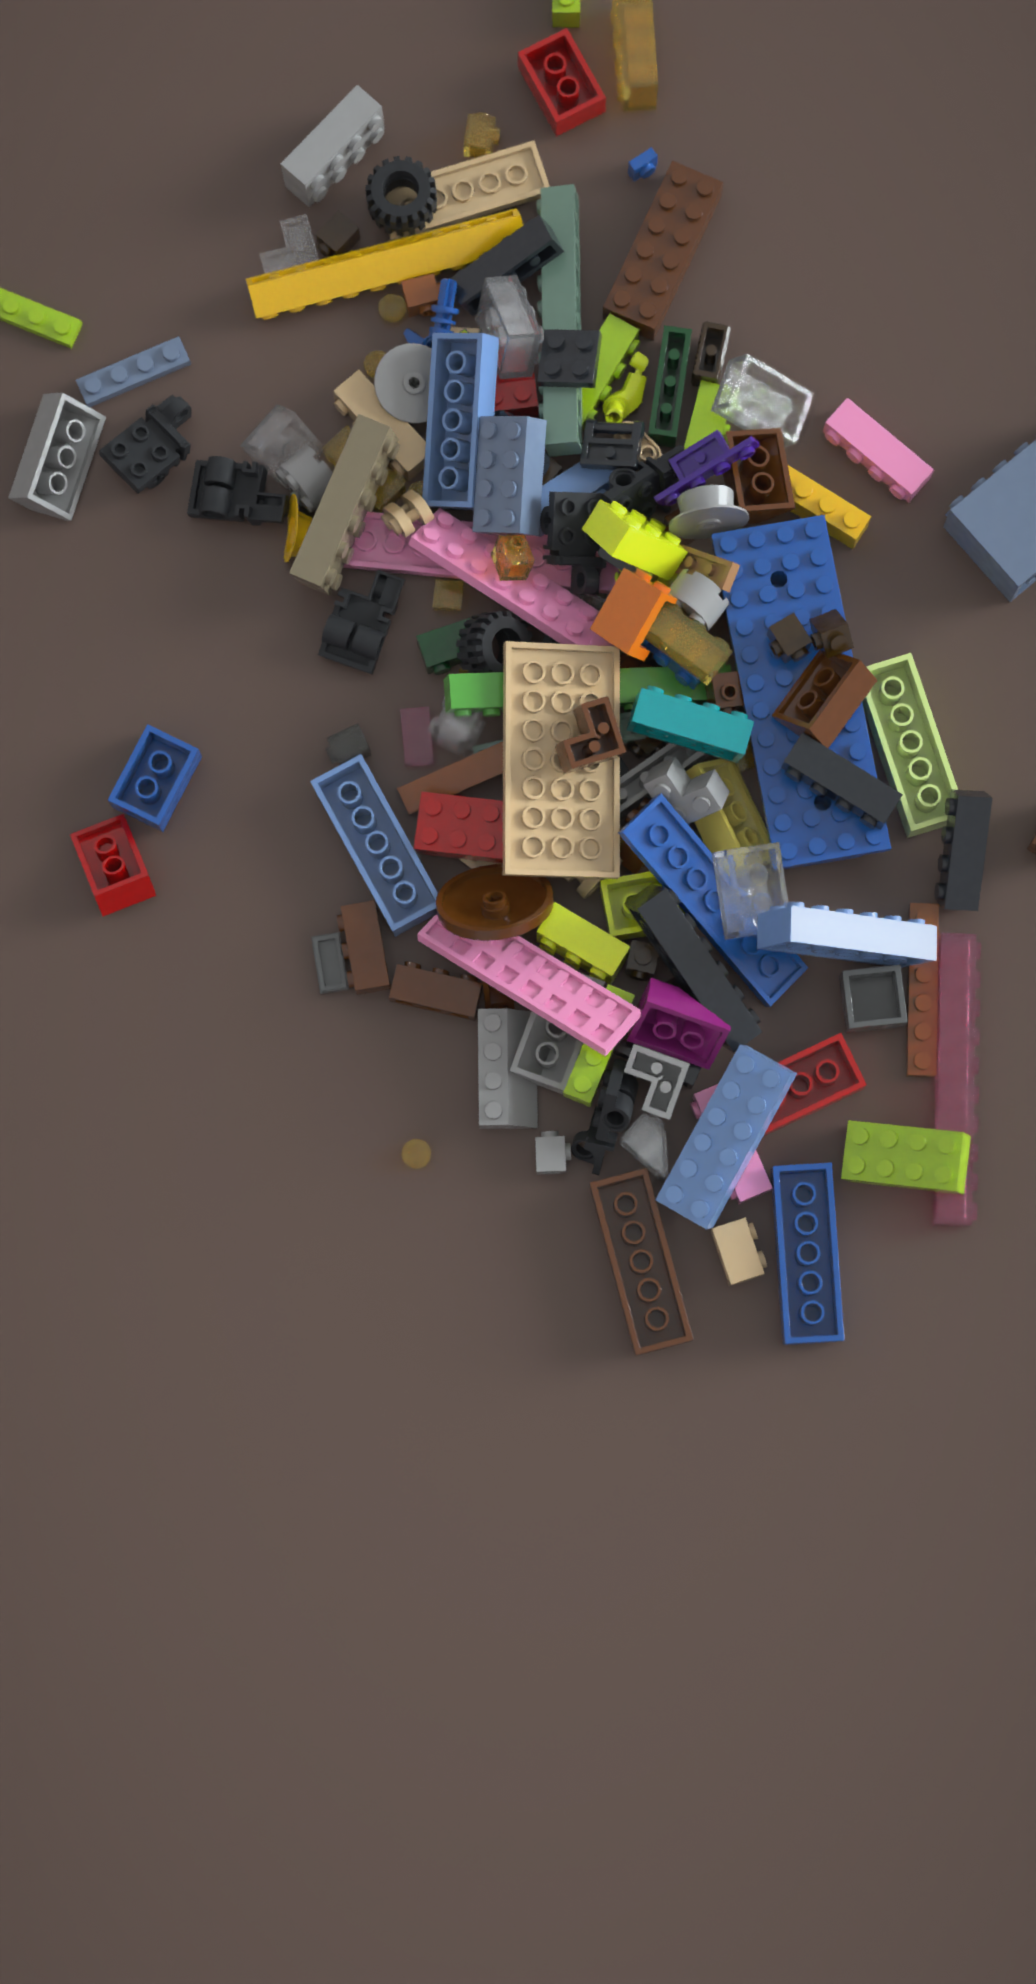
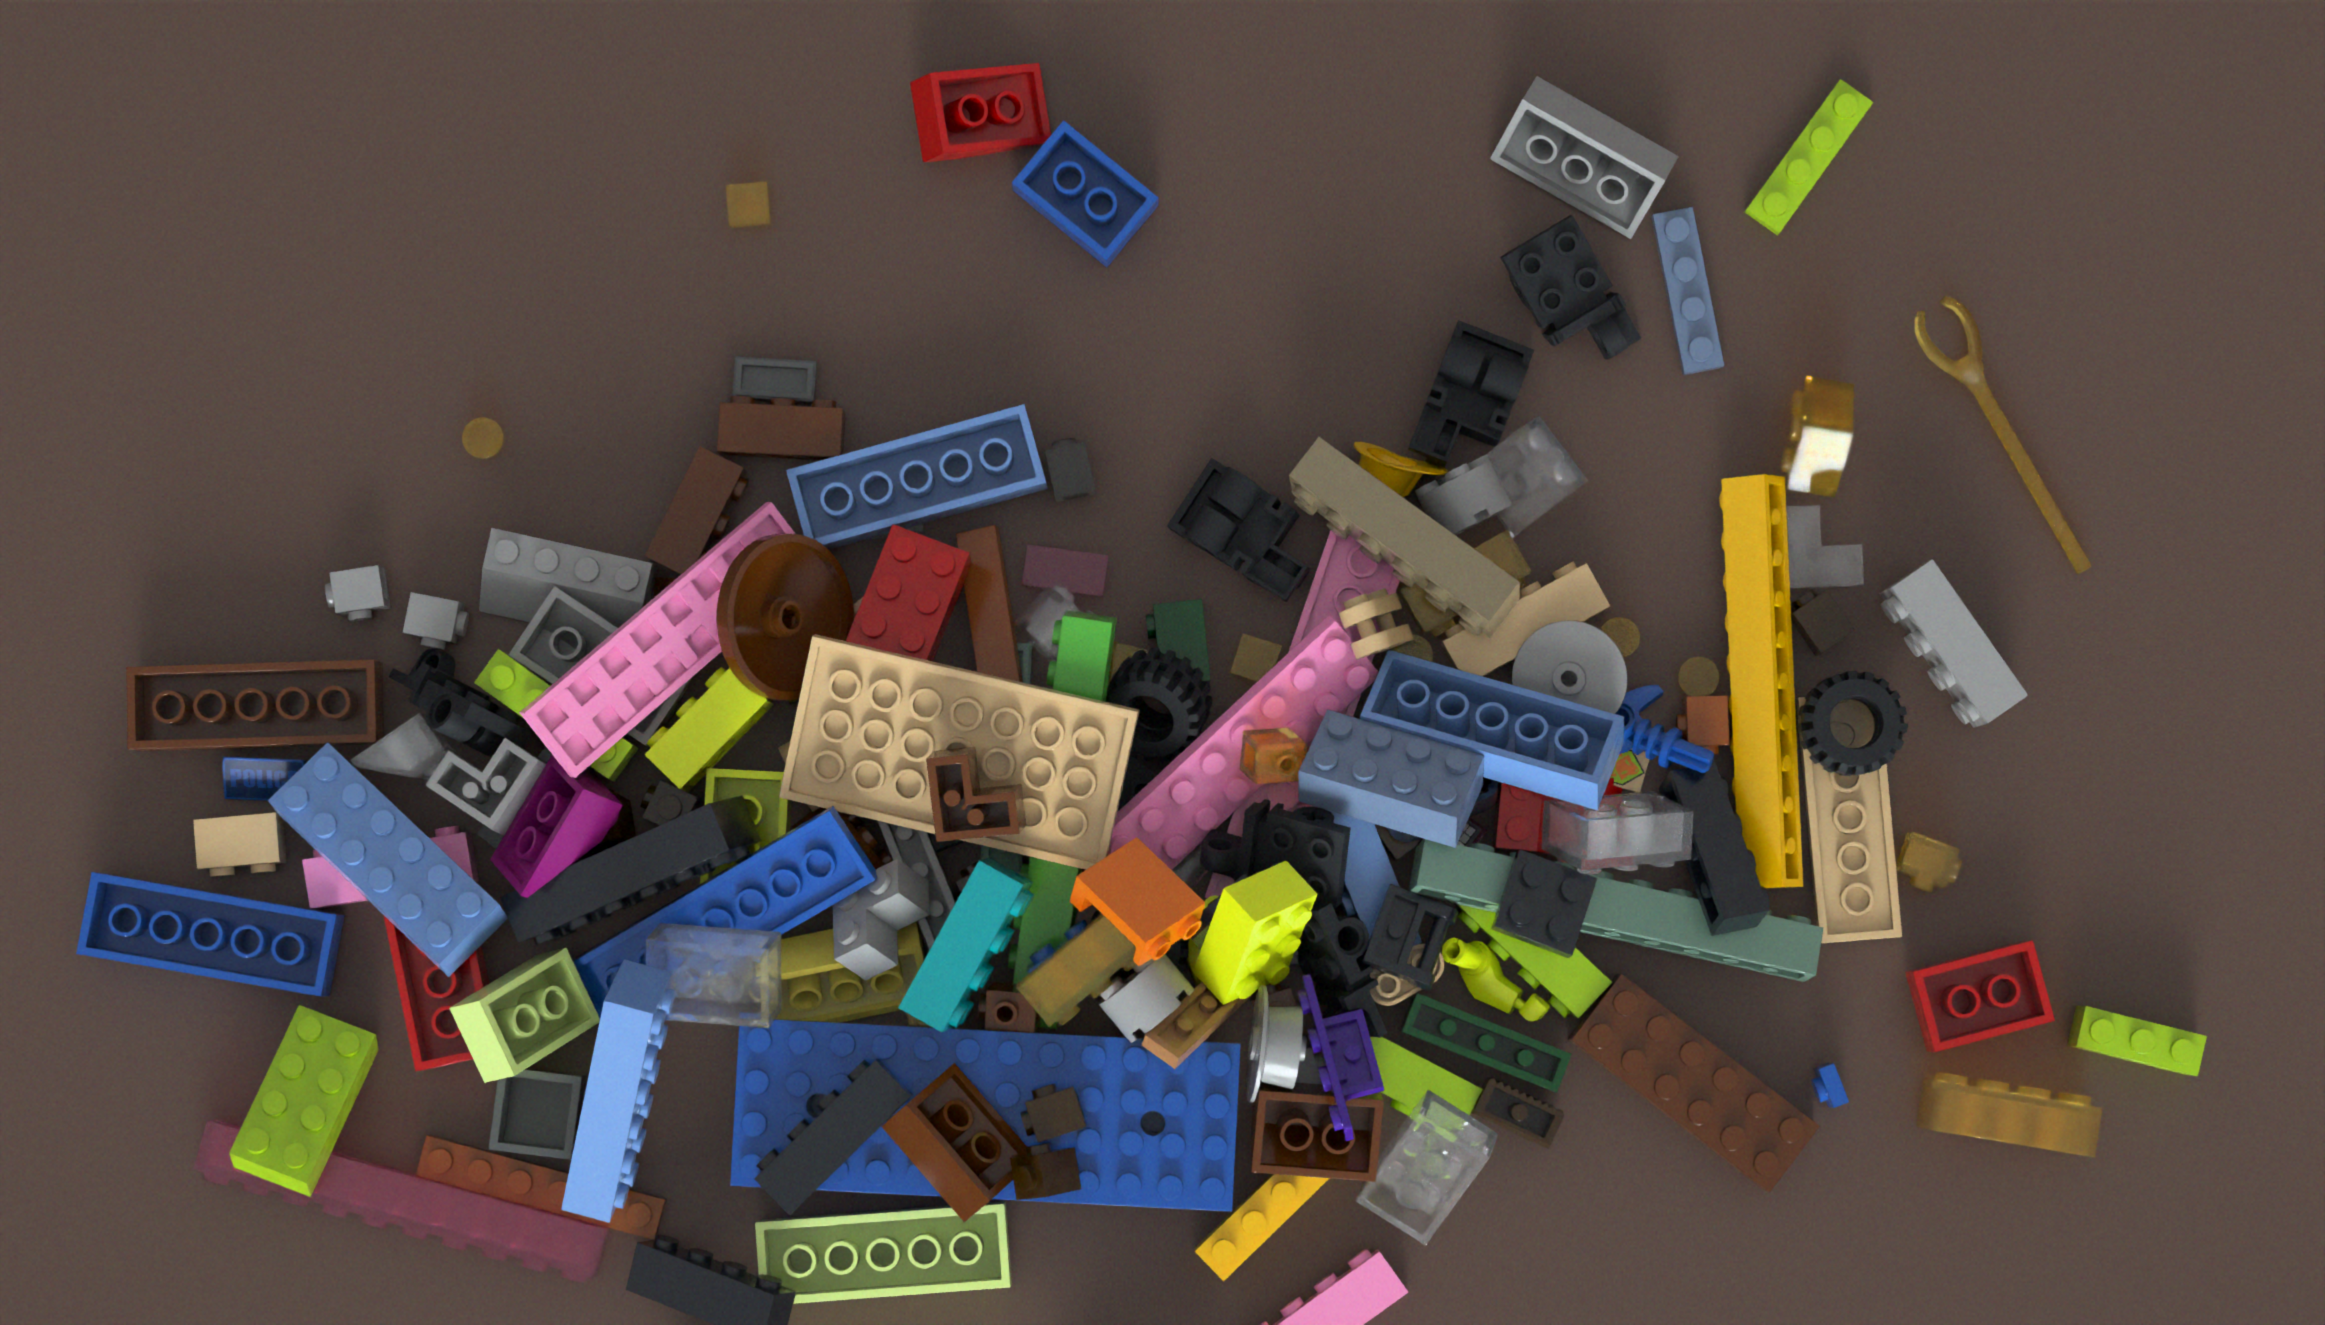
camera: 100 degrees right, 5 degrees up
(148, 178) = (1970, 372): none -> clear yellow piece
(212, 257) = (1820, 436): none -> clear yellow brick
(212, 1008) = (748, 204): none -> clear yellow plate
(545, 1212) = (358, 592): none -> light grey brick
(689, 1247) = (256, 776): none -> slope
(810, 1017) = (525, 1015): none -> yellowish green brick

